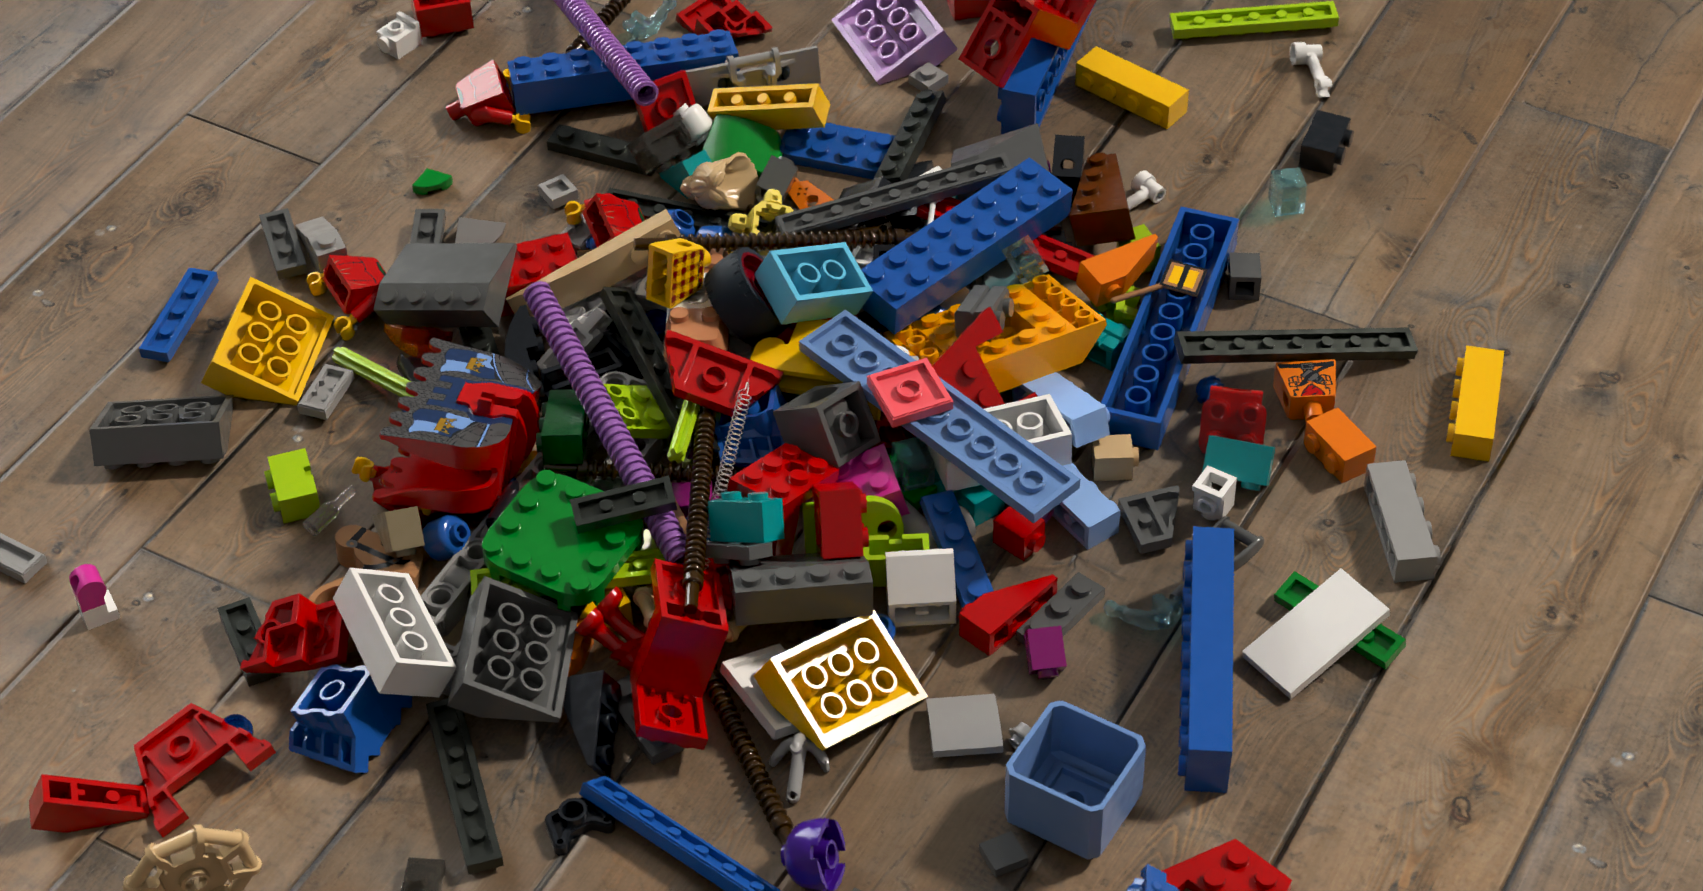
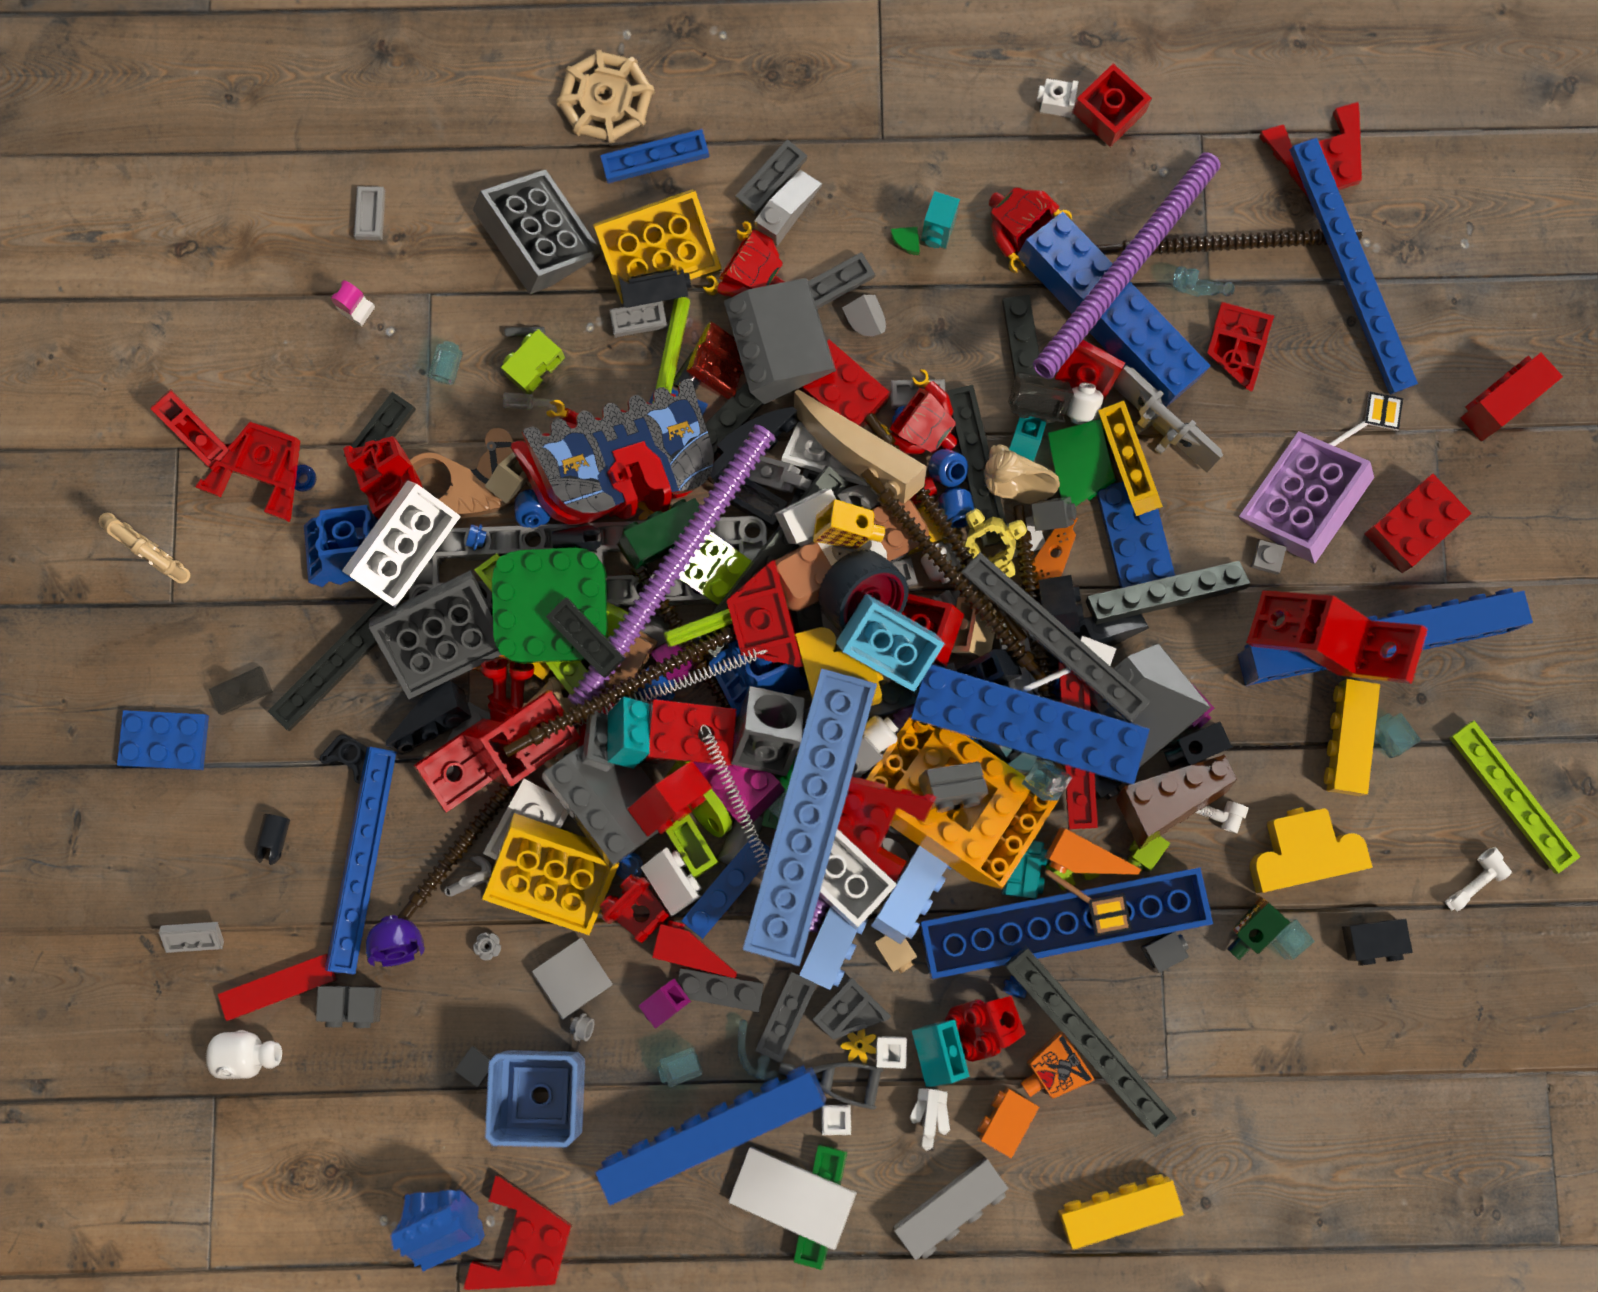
camera: 60 degrees right, 35 degrees up
(99, 322) = (605, 110): none -> tan plate
(229, 555) = (445, 363): none -> clear light blue brick
(252, 487) = (521, 331): none -> dark grey piece
(306, 361) = (654, 287): none -> black window
(436, 585) = (475, 537): none -> blue plate
(438, 140) = (940, 220): none -> teal brick
(558, 191) = (949, 345): light grey plate -> none
(639, 318) = (799, 518): none -> white brick
(877, 793) = (479, 946): none -> light grey plate
(897, 478) = (715, 751): none -> white piece
(909, 392) = (811, 787): coral tile -> none
(918, 635) = (619, 909): none -> red piece
(1120, 670) = (680, 1067): none -> clear light blue brick
(1123, 567) = (786, 1017): none -> dark grey plate
(1150, 57) = (1395, 734): none -> clear light blue brick
(1185, 529) = (861, 1052): none -> yellow plant
(1213, 153) = (1306, 852): none -> yellow brick
(1256, 578) = (836, 1119): none -> white tile
(1262, 200) = (1268, 923): none -> dark green torso
(1296, 495) = (934, 1107): none -> white rock

